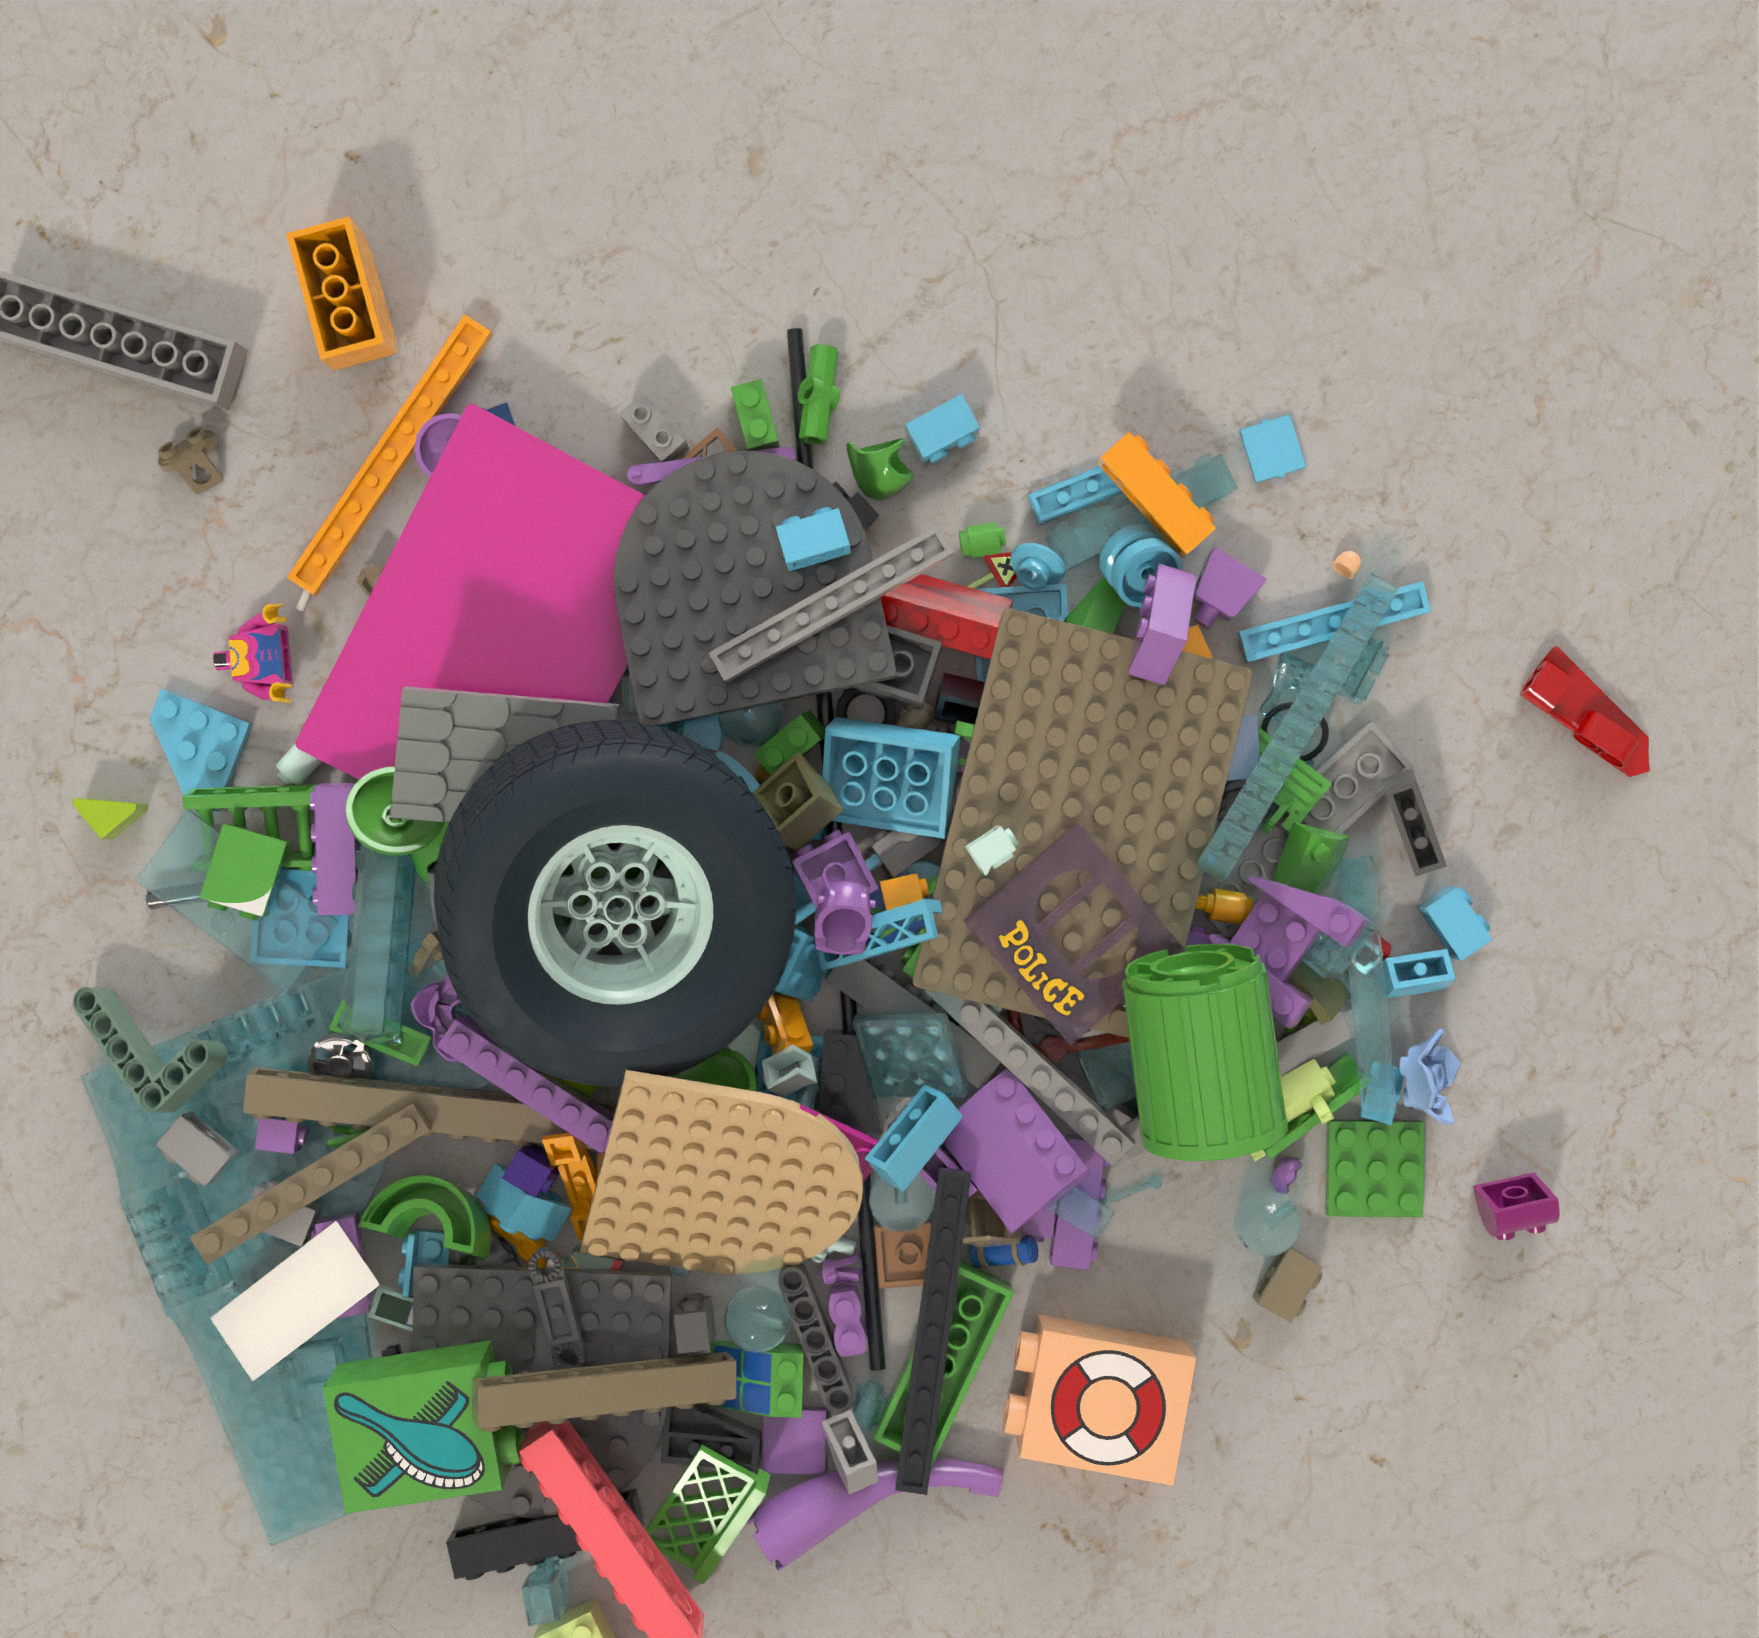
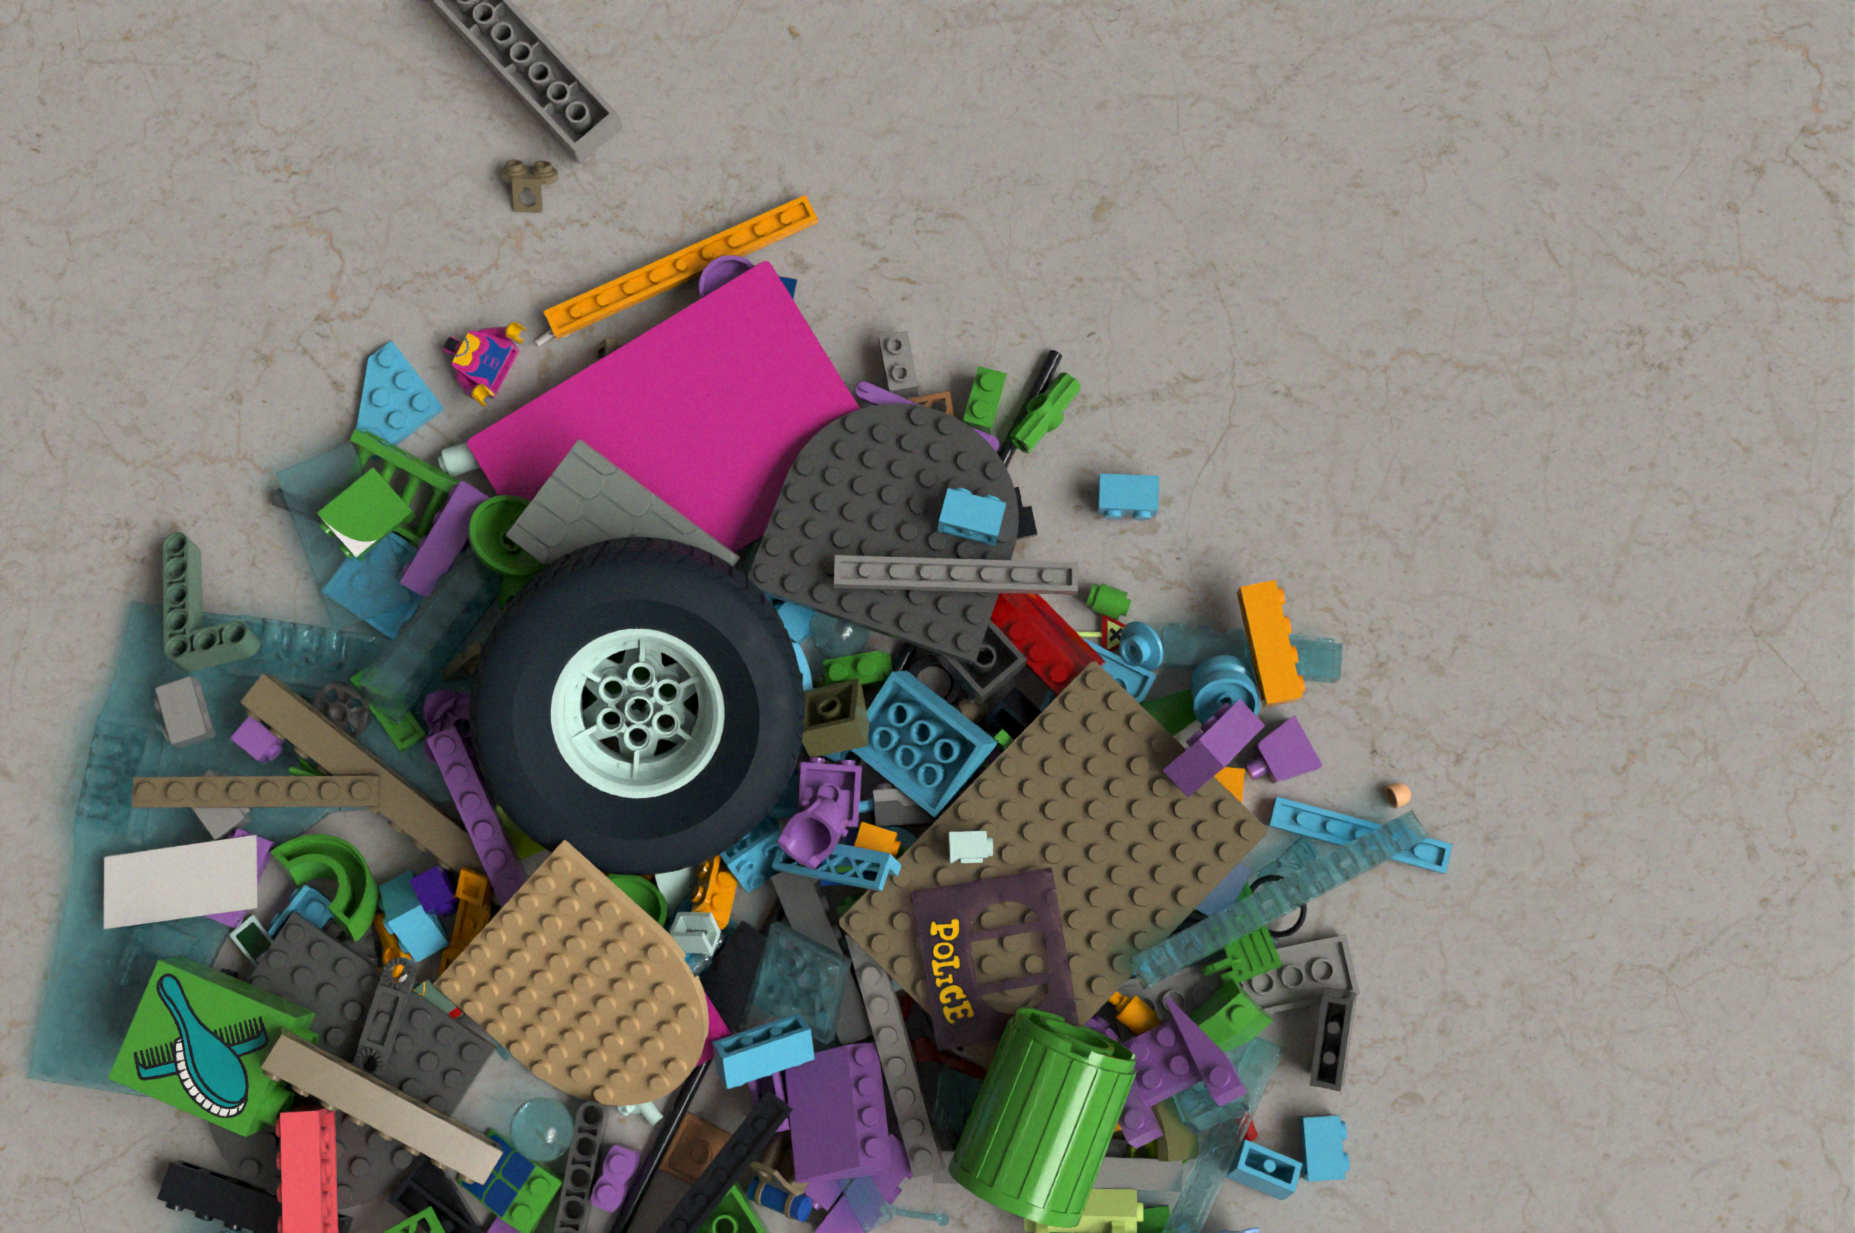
camera: 30 degrees right, 10 degrees down
(108, 817) = (288, 414): lime slope -> none
(342, 293) = (721, 125): light orange brick -> none
(694, 1323) = (488, 1101): dark grey brick -> none
(835, 1273) = (627, 1132): medium lavender piece -> none
(879, 469) = (1059, 498): bright green piece -> none
(899, 1209) = (718, 1107): clear light blue piece -> none
(1072, 495) = (1202, 608): medium azure tile -> none
(1272, 448) = (1388, 666): medium azure piece -> none
(1357, 683) = (1350, 894): clear light blue hinge -> none
(1582, 707) = (1535, 1043): red panel -> none

